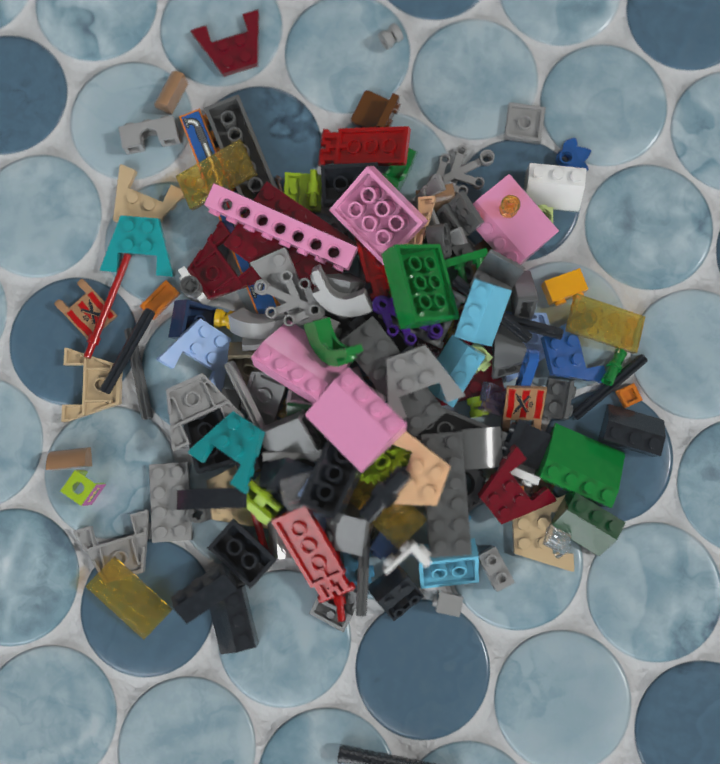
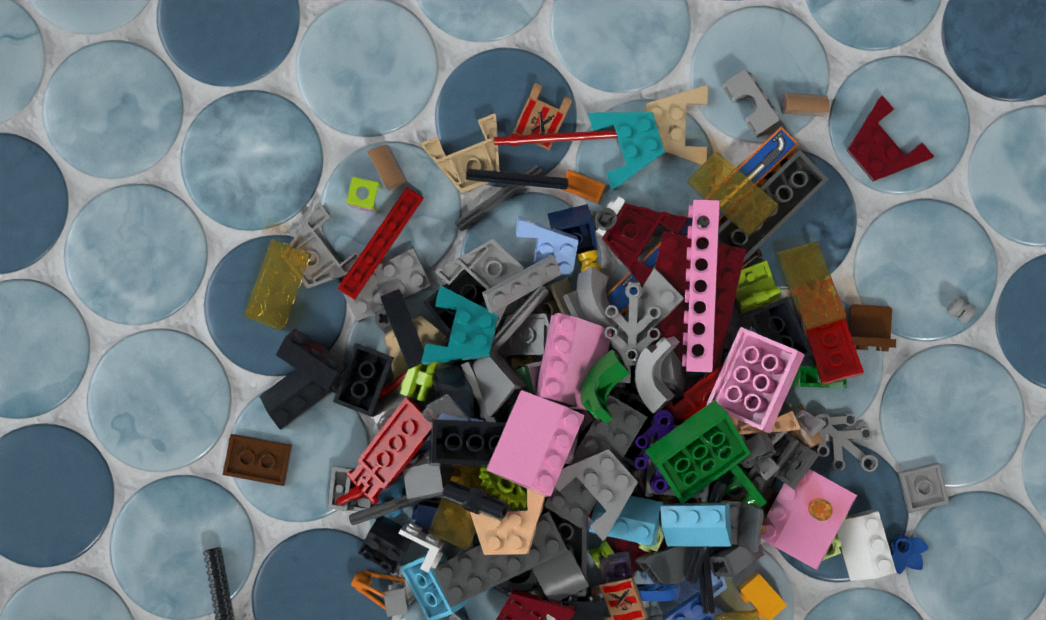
camera: 65 degrees right, 5 degrees up
(132, 491) = (380, 243): none -> red tile
(215, 380) = (521, 283): none -> light grey plate
(275, 679) = (257, 459): none -> reddish brown tile
(321, 144) = (811, 285): none -> clear yellow plate
(421, 627) = (362, 583): none -> orange plant

